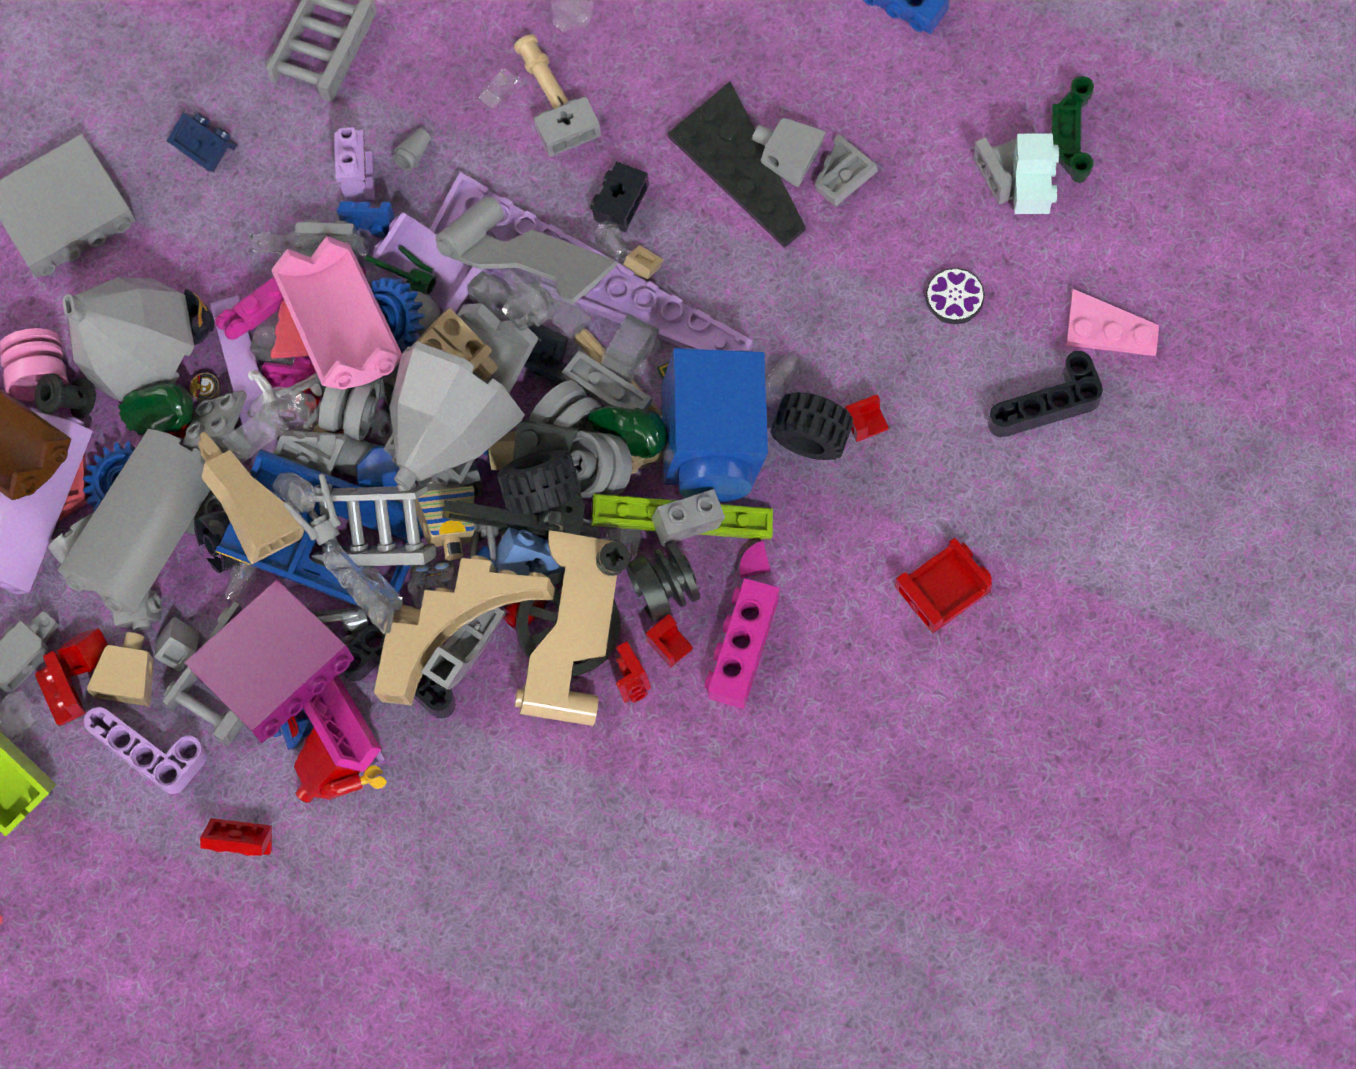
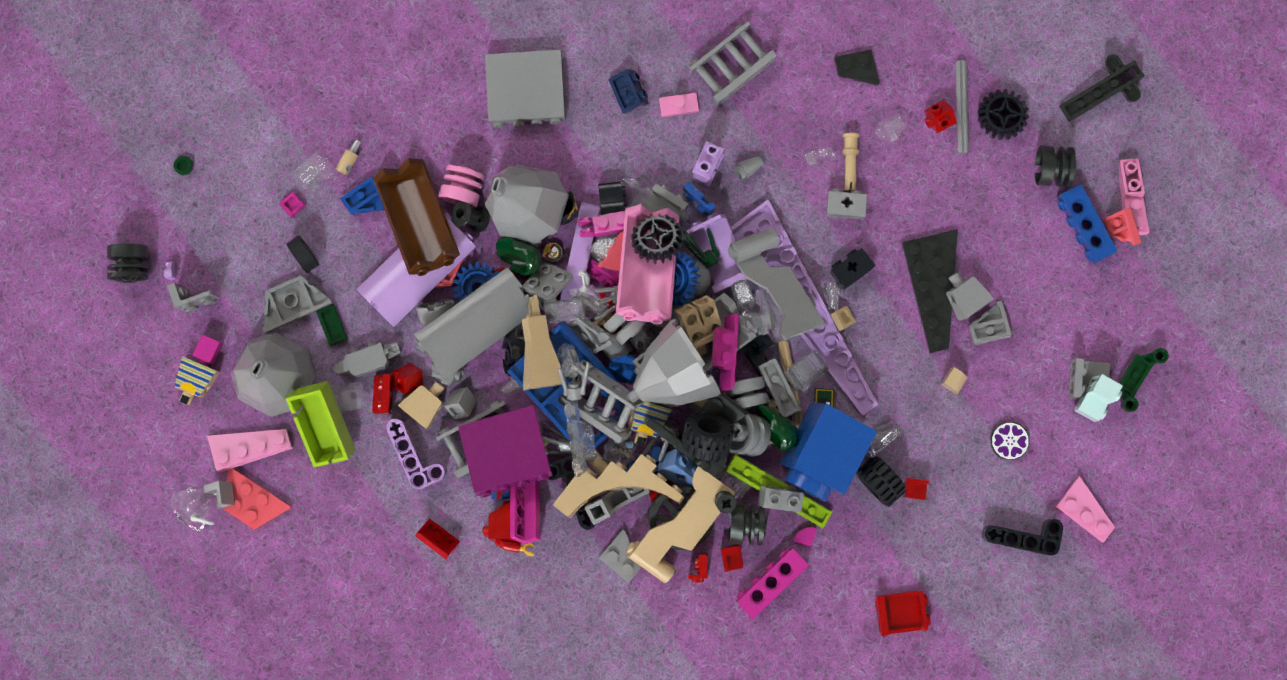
camera: 25 degrees right, 15 degrees up
(246, 273) = (611, 197): none -> black brick
(278, 124) = (678, 105): none -> bright pink tile
(331, 276) = (642, 243): none -> black gear
(501, 363) = (724, 351): none -> dark pink bracket
(513, 730) = (616, 558): none -> light grey wing
(836, 259) = (954, 380): none -> tan brick

